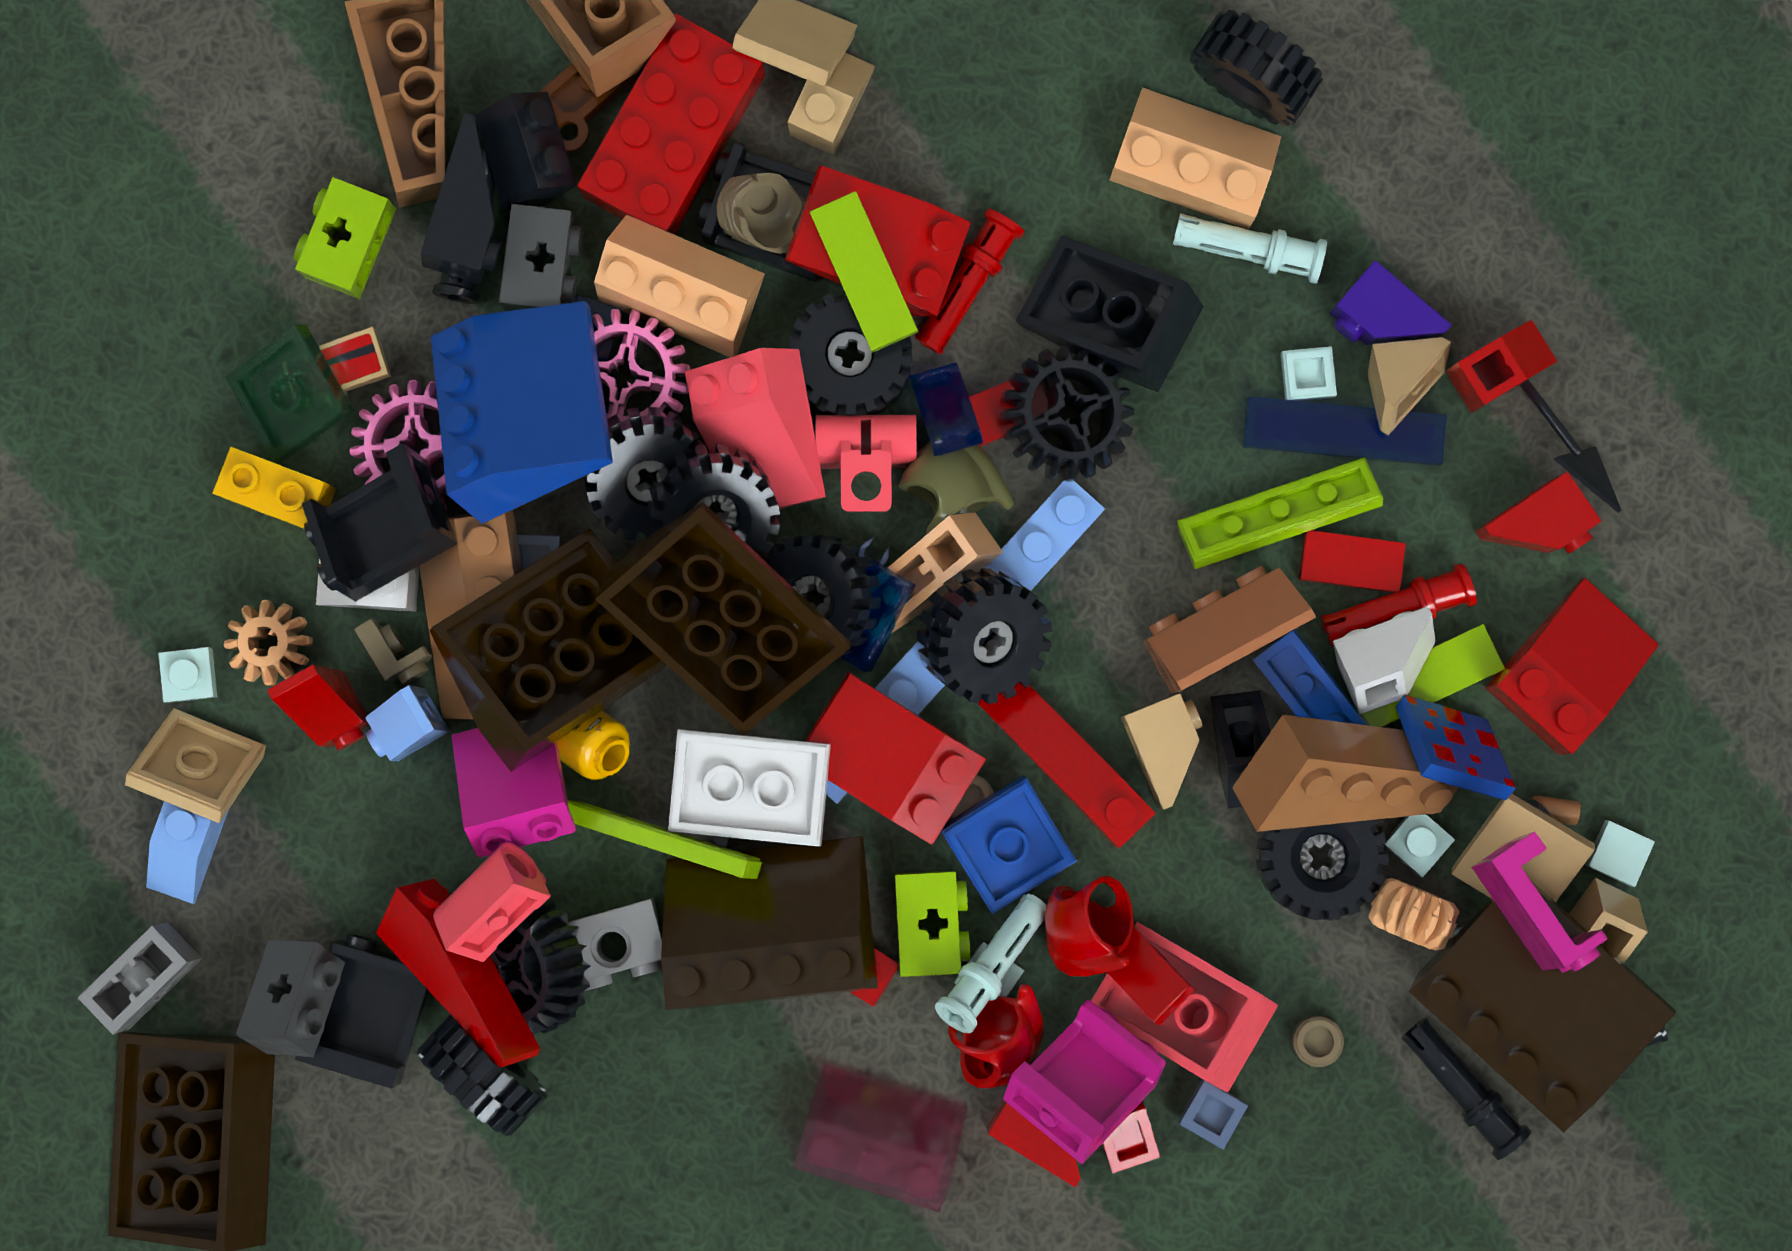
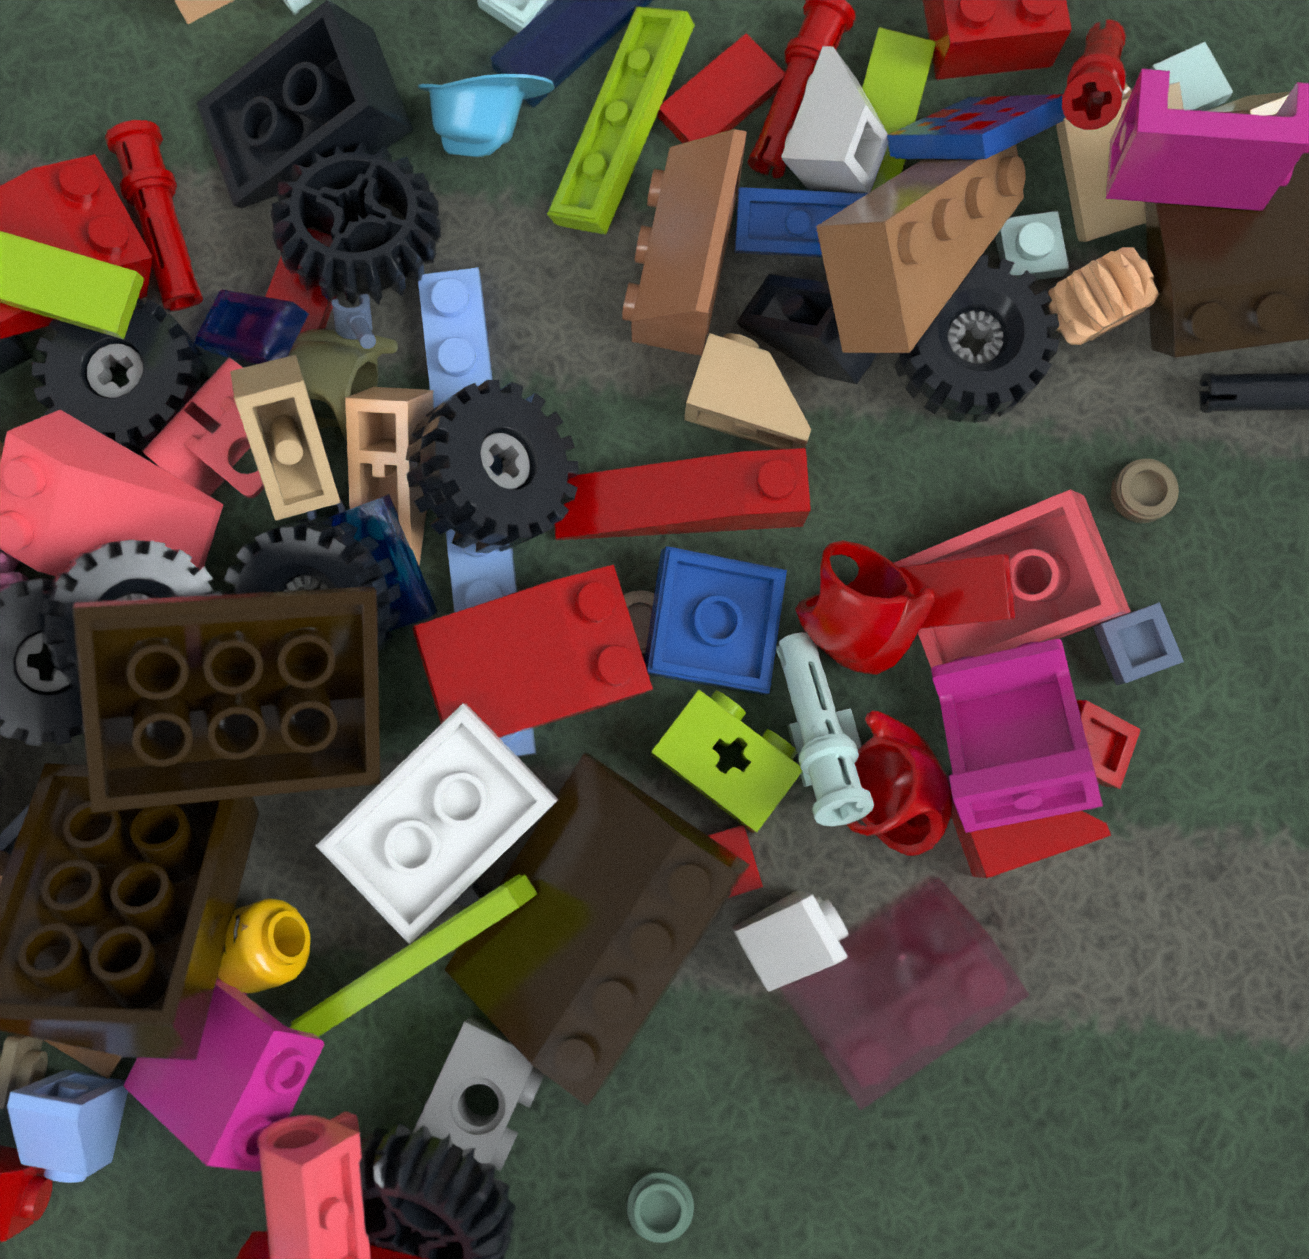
camera: 50 degrees left, 5 degrees down
(640, 1100) = (660, 1206): none -> sand green plate
(856, 1048) = (792, 939): none -> white slope
(895, 505) = (284, 437): none -> tan slope
(1002, 475) = (355, 322): none -> sand blue hand
(1200, 425) = (481, 111): none -> medium azure piece
(1546, 798) = (1096, 79): none -> red pin

